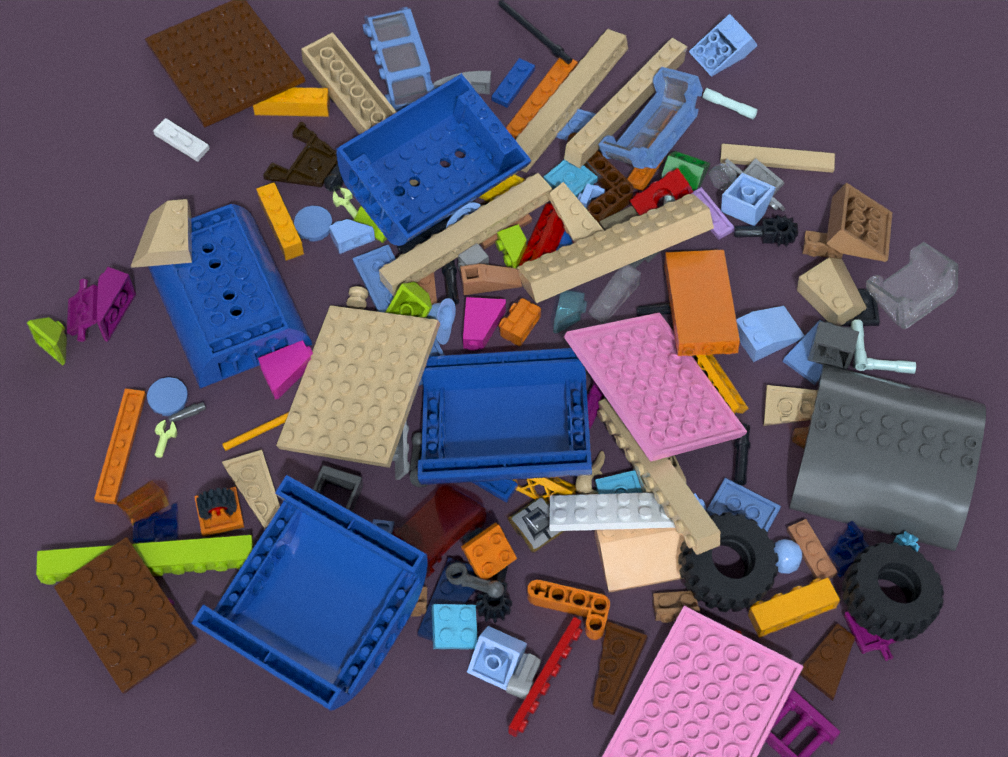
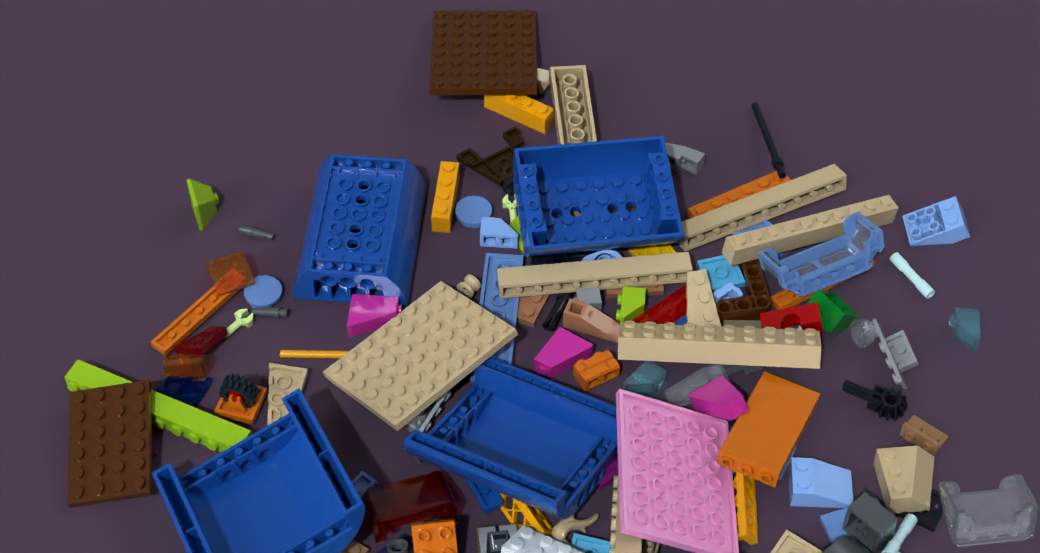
camera: 30 degrees right, 10 degrees down
(82, 310) = (241, 193): magenta plate -> none
(113, 300) = (267, 196): magenta slope -> none
(121, 341) = (254, 232): none -> dark grey animal
(127, 394) = (230, 273): none -> clear orange bracket
(144, 473) = (201, 342): none -> dark red wing
(166, 236) = (336, 161): tan wedge -> none
(181, 139) = (410, 100): white plate -> none
(295, 57) = (542, 80): none -> tan slope
(340, 479) = (355, 423): dark grey window -> none
(399, 56) = (632, 103): windscreen -> none
(410, 301) = (507, 305): lime slope -> none
(445, 314) = (529, 336): light blue piece -> none
(513, 83) = (722, 174): blue plate -> none
(646, 297) = (719, 400): none -> dark pink slope
(721, 224) = (832, 360): lavender tile -> none
(747, 199) = (872, 361): light blue slope -> none
(778, 157) = (930, 341): tan tile -> none
(803, 130) = (966, 327): none -> clear light blue slope
(859, 225) = (966, 432): medium nougat slope -> none

